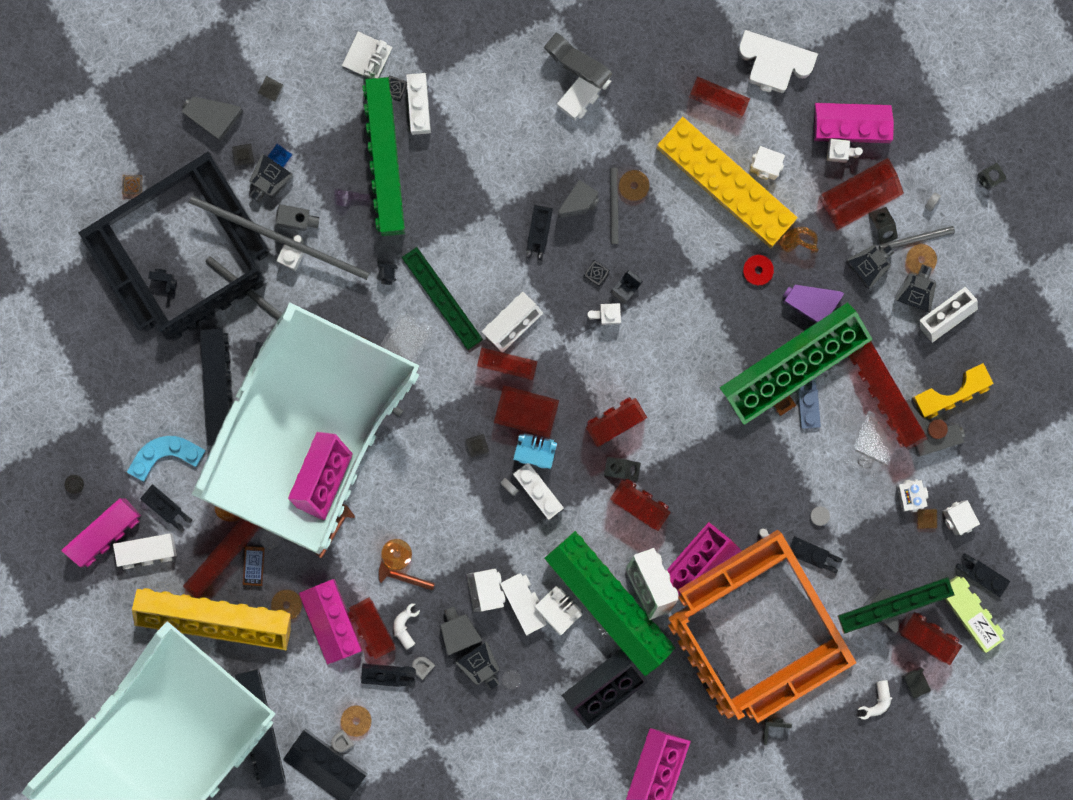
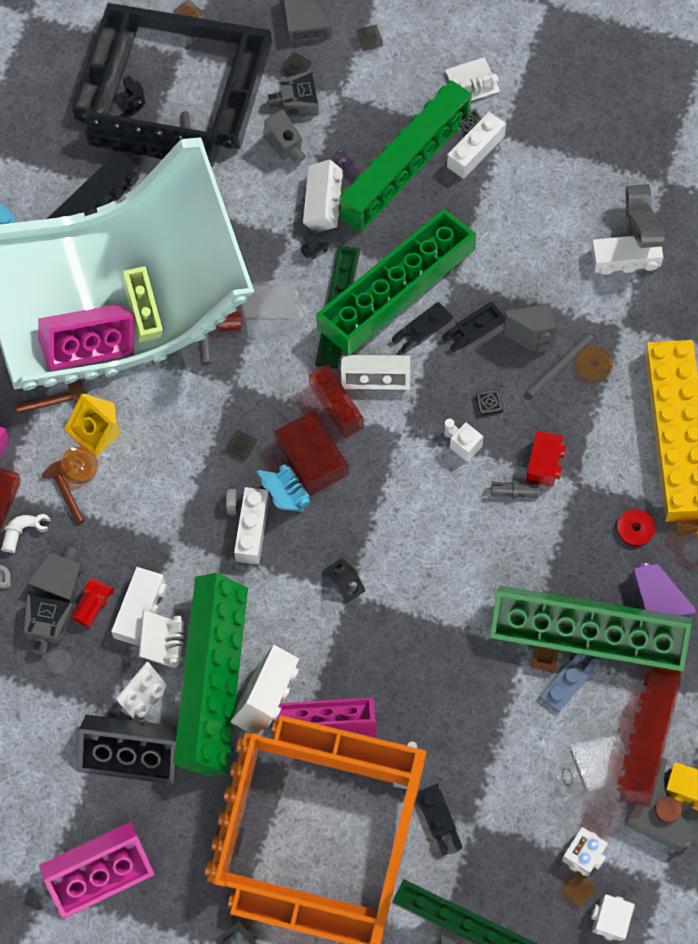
camera: 50 degrees right, 20 degrees down
(278, 237) = (256, 138): dark grey piece -> none
(280, 155) = (324, 90): clear blue tile -> none
(289, 256) = (251, 164): white brick -> none
(331, 421) = (142, 304): none -> yellowish green brick
(360, 234) = (322, 196): none -> white brick
(378, 521) = (93, 423): none -> yellow slope
(466, 250) = (396, 281): none -> green brick
(485, 590) = (118, 559): white slope -> none
(492, 624) = (94, 598): none -> red piece
(508, 260) = (423, 326): none -> black hinge
(580, 646) = (141, 692): none -> white hinge
(615, 421) = (377, 529): clear red brick -> none
(626, 286) = (503, 435): black bracket -> none
(640, 504) = (327, 617): clear red brick -> none
(666, 315) = (514, 489): none -> dark grey pin
(667, 279) = (544, 459): none -> red brick
(820, 515) = (480, 789): light grey tile -> none

